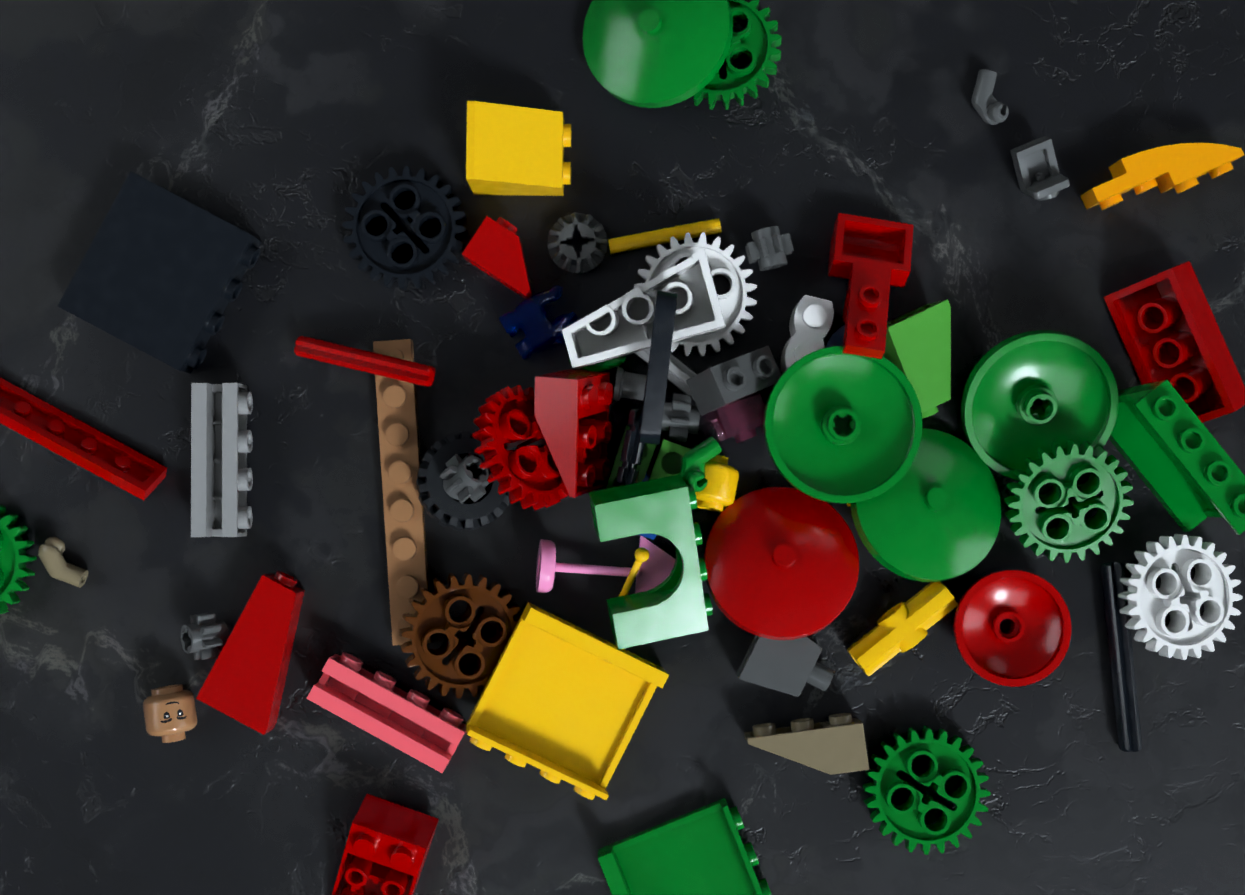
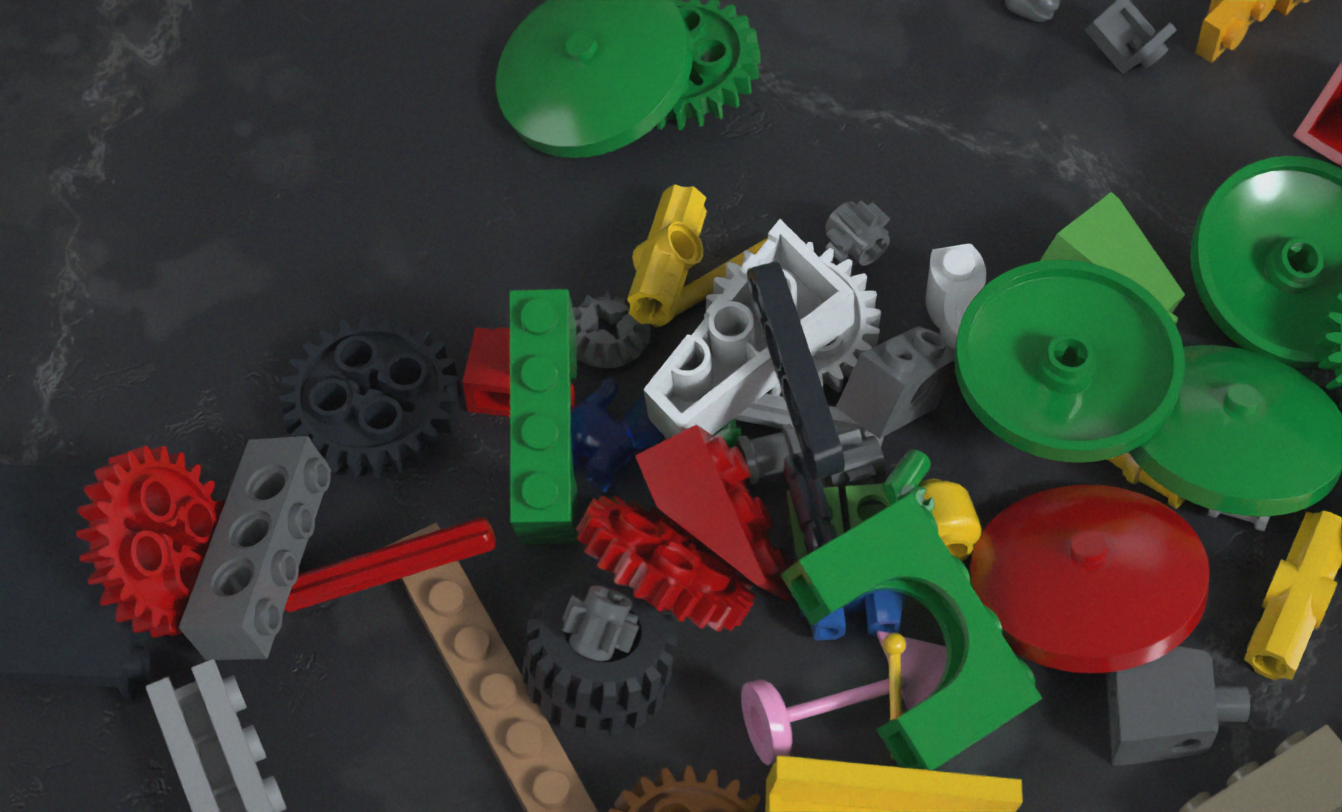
camera: 25 degrees left, 30 degrees down
(213, 319) = (148, 535): none -> red gear
(290, 295) = (256, 549): none -> dark grey brick
(476, 354) = (540, 417): none -> green arch
(516, 150) = (475, 248): yellow slope -> none
(637, 210) = (667, 255): none -> yellow piece
(739, 419) = (939, 428): clear pink brick -> none
(873, 258) = (1005, 196): red plate -> none

